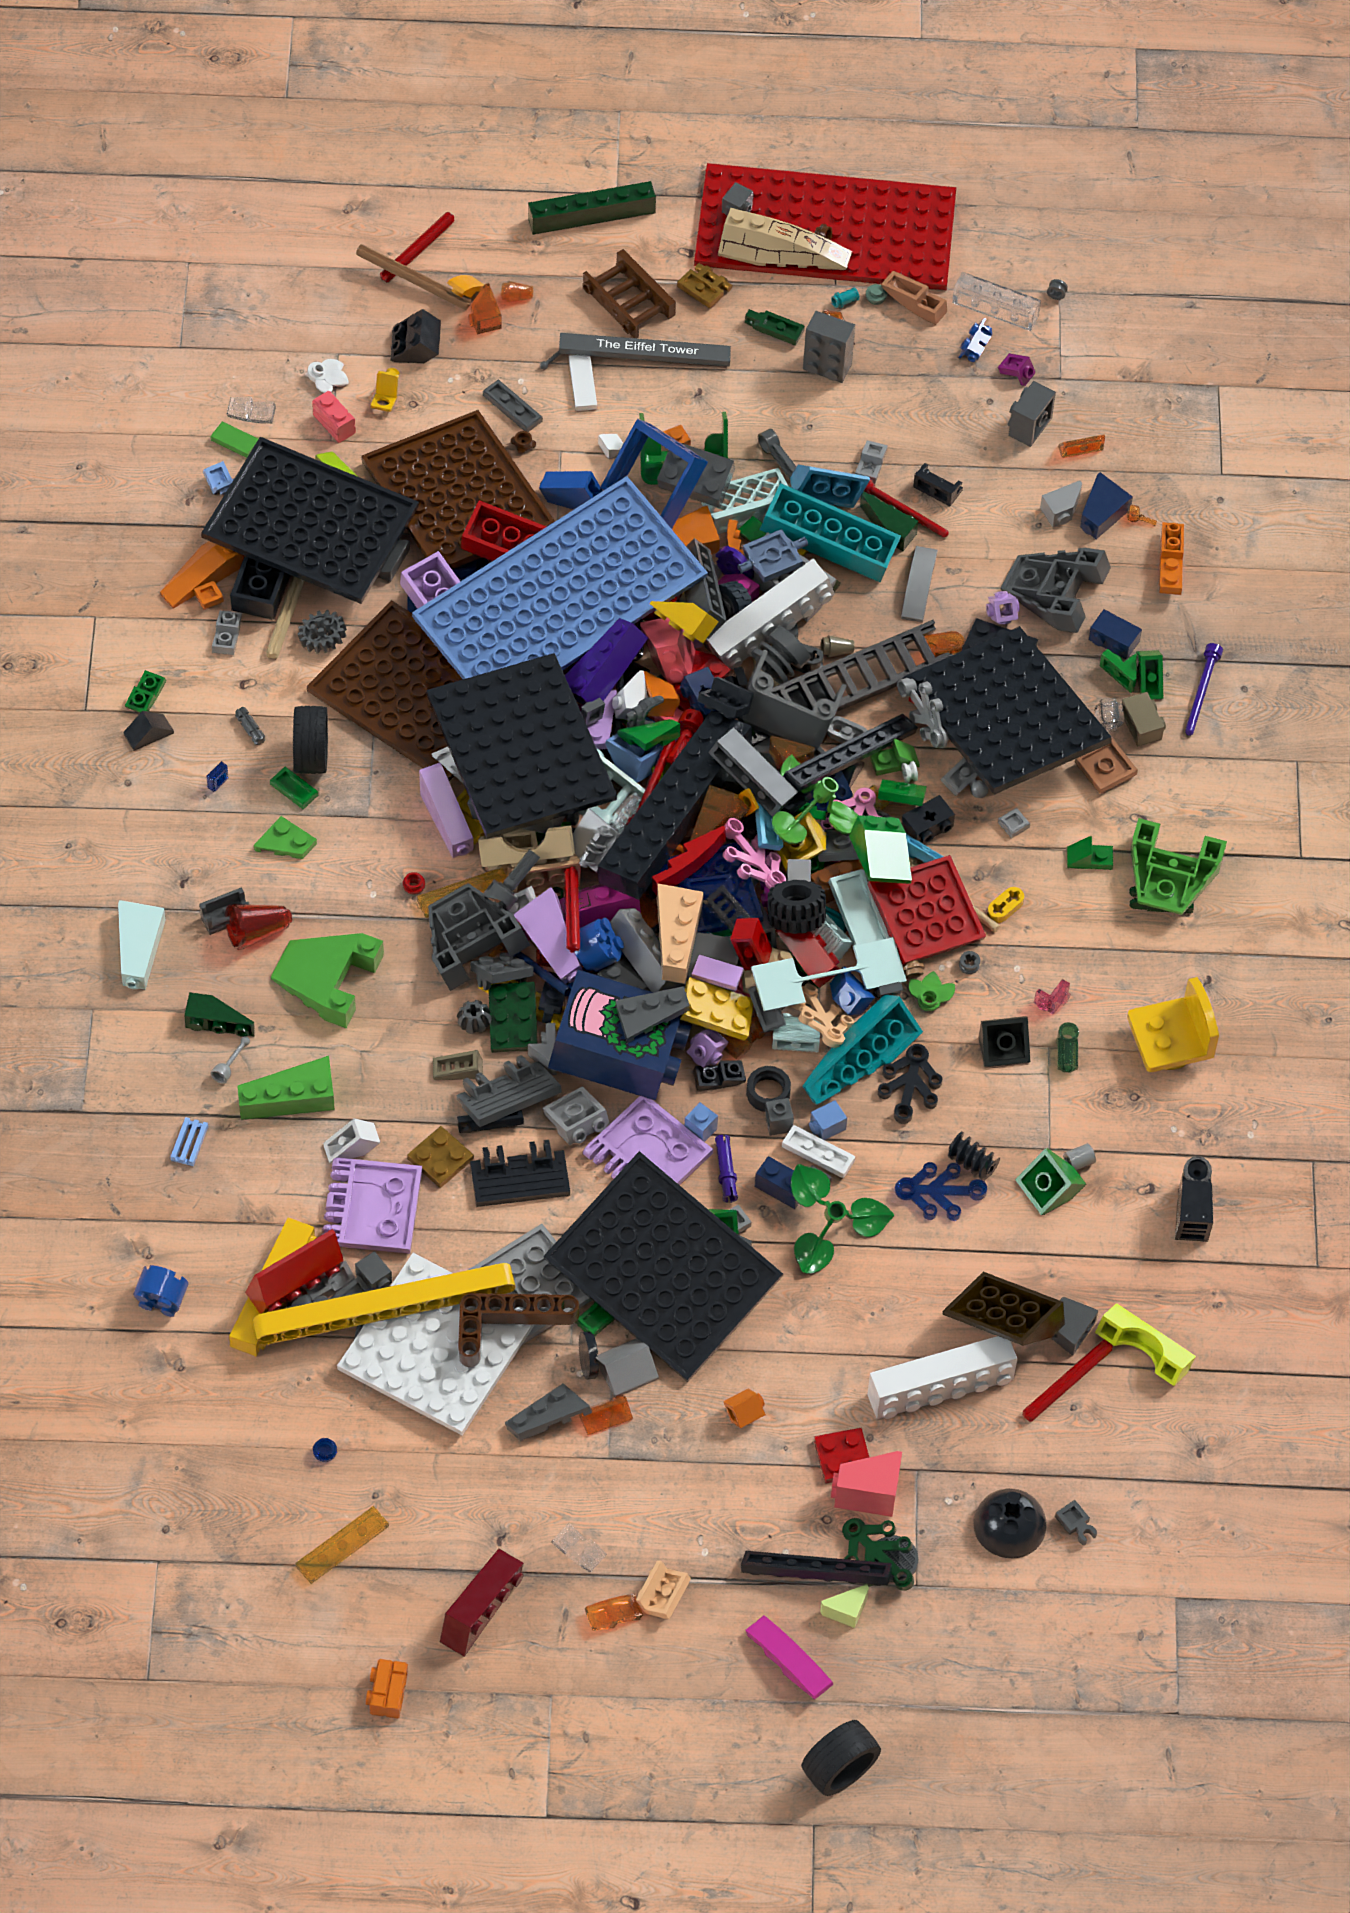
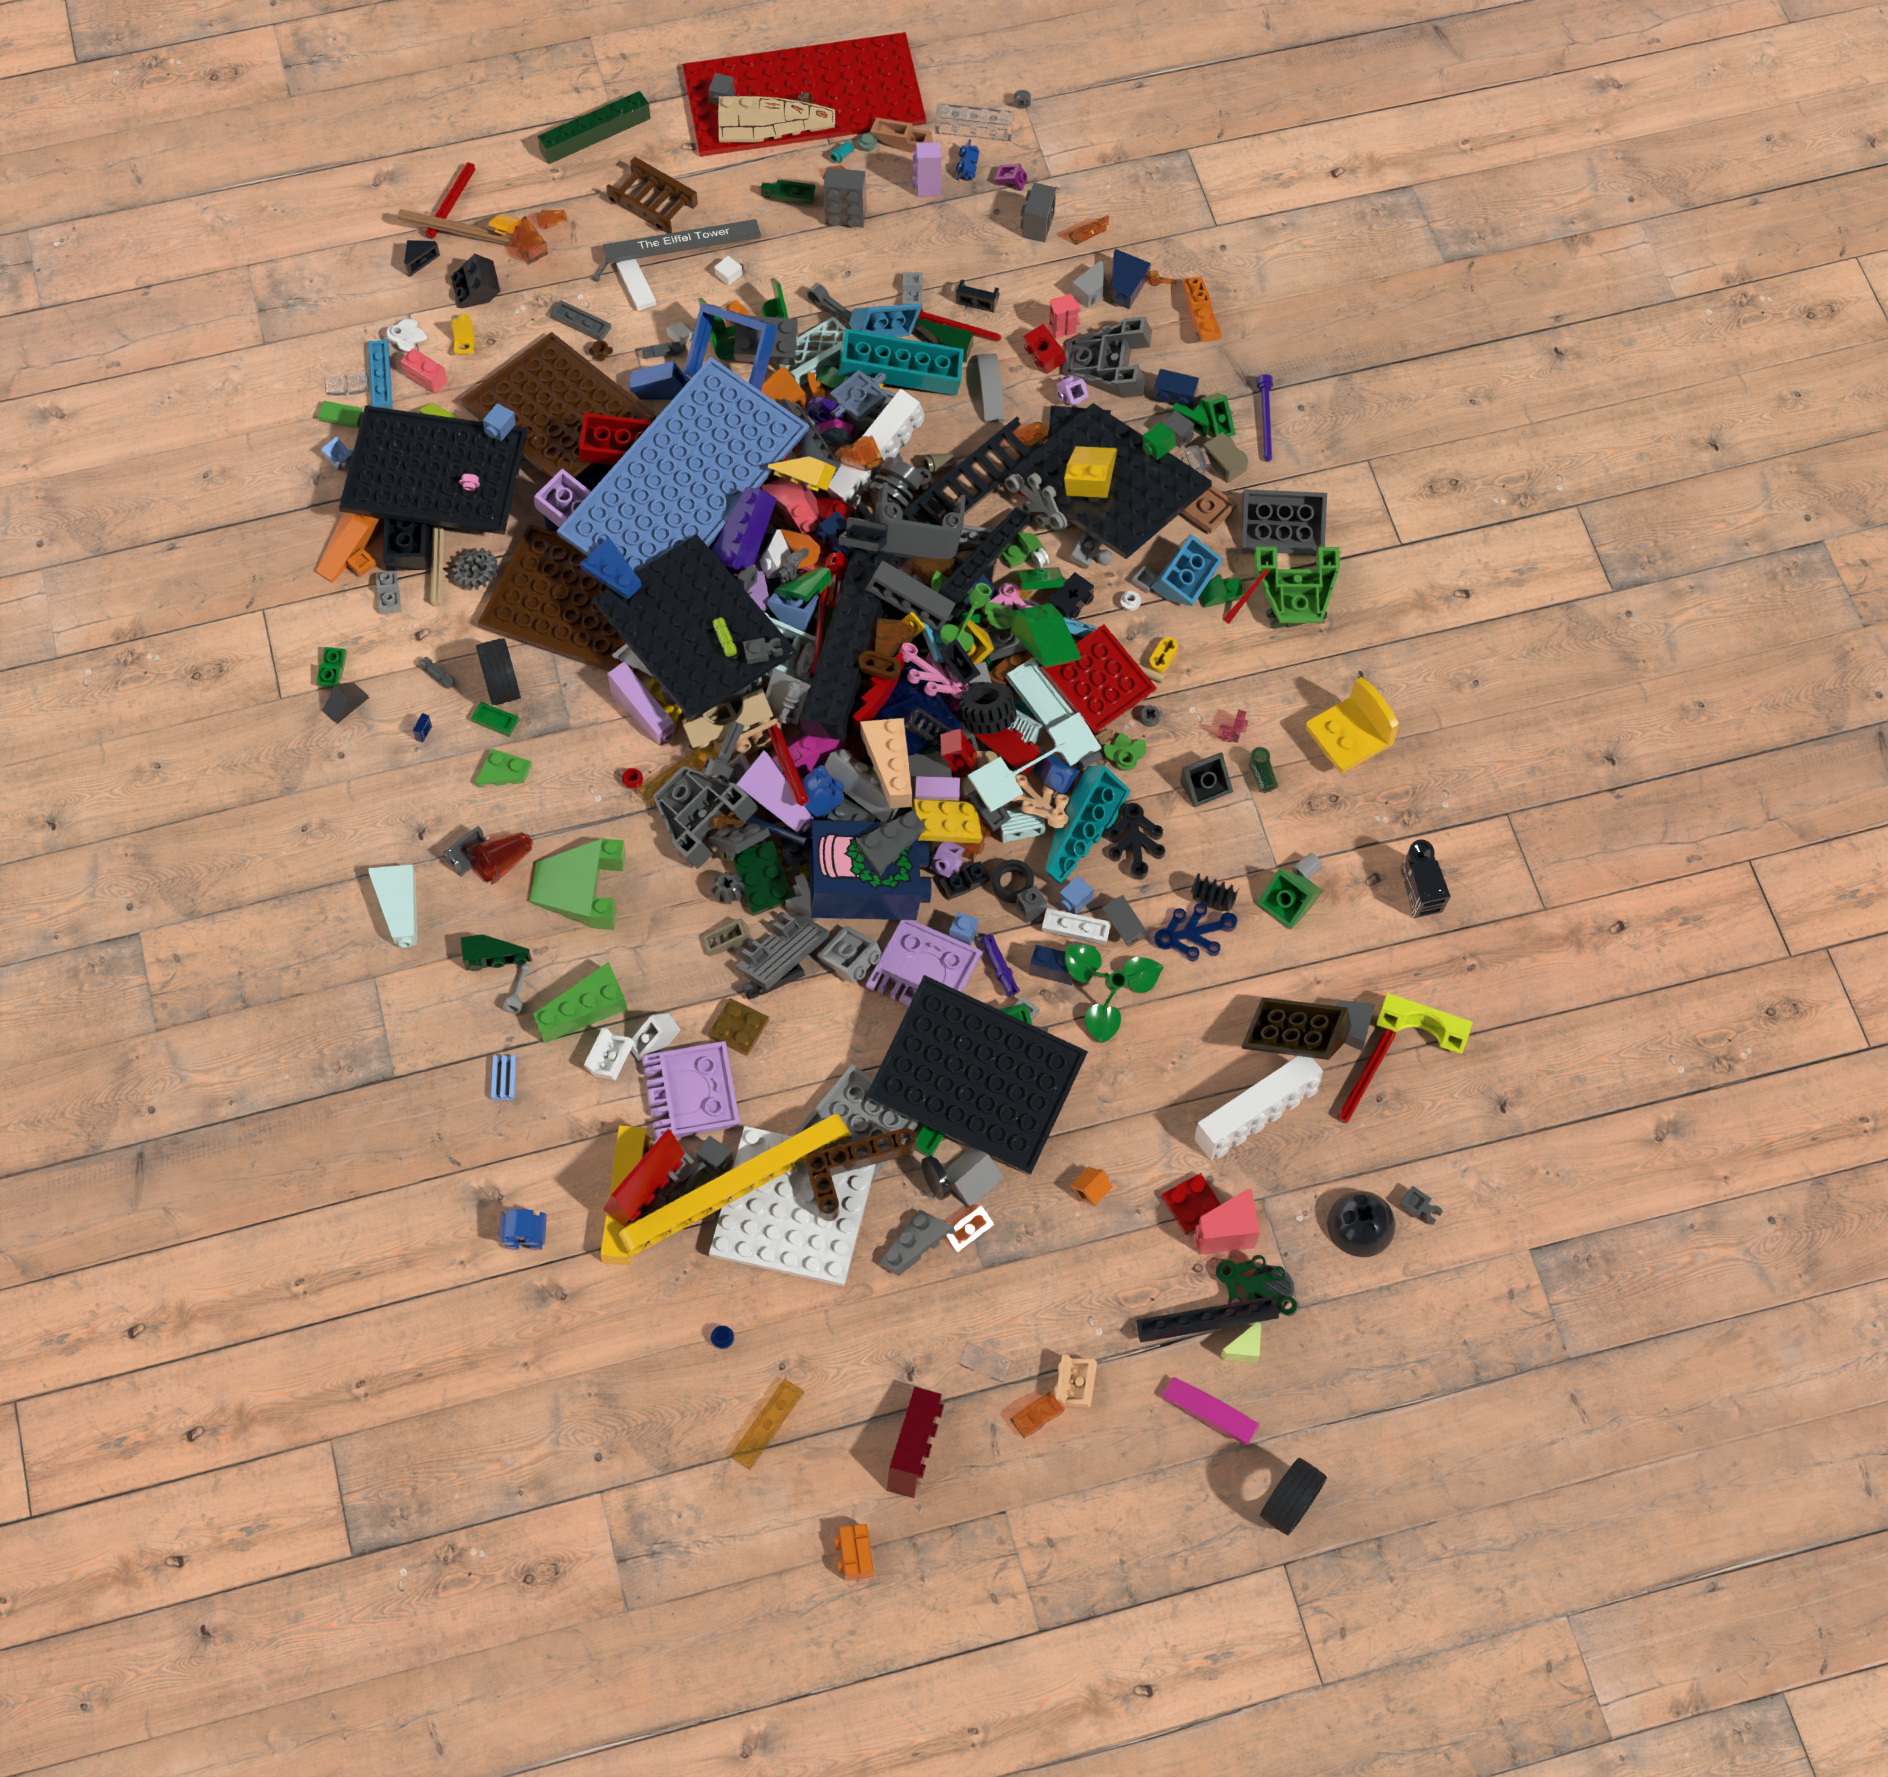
camera: 15 degrees left, 5 degrees up
(288, 409) = (380, 374): none -> dark azure tile
(300, 1147) = (608, 1055): none -> white bracket
(341, 541) = (469, 482): none -> bright pink plate
(367, 296) = (419, 254): none -> black slope
(390, 488) = (499, 422): none -> medium blue brick
(395, 560) = (521, 486): dark grey slope -> none
(455, 665) = (612, 569): none -> blue wing
(488, 946) = (720, 819): none -> clear orange hand
(519, 1179) = (817, 1028): black hinge -> none
(547, 763) = (724, 637): none -> lime axle
(577, 785) = (758, 650): none -> dark grey plate
(586, 457) = (661, 350): none -> dark grey axle
(683, 392) = (728, 270): none -> white piece
(698, 832) = (880, 665): none -> reddish brown plate
(700, 288) = (713, 175): pearl gold plate -> none
(751, 616) = (861, 455): none -> clear orange slope
(781, 851) = (959, 662): none -> black slope
(870, 1159) = (1125, 921): none -> dark grey hinge
(926, 338) = (927, 169): none -> lavender wedge
(987, 695) = (1090, 471): none -> yellow slope
(988, 546) = (1040, 339): none -> red brick
(988, 845) = (1130, 605): none -> white plate
(1020, 528) = (1063, 316): none -> coral brick
(1059, 826) = (1187, 572): none -> dark azure slope
(1069, 682) = (1158, 441): none -> green brick
(1097, 878) = (1232, 613): none -> red sticker
(1102, 677) = (1181, 427): none -> dark grey brick
(1181, 800) = (1283, 520): none -> dark grey slope

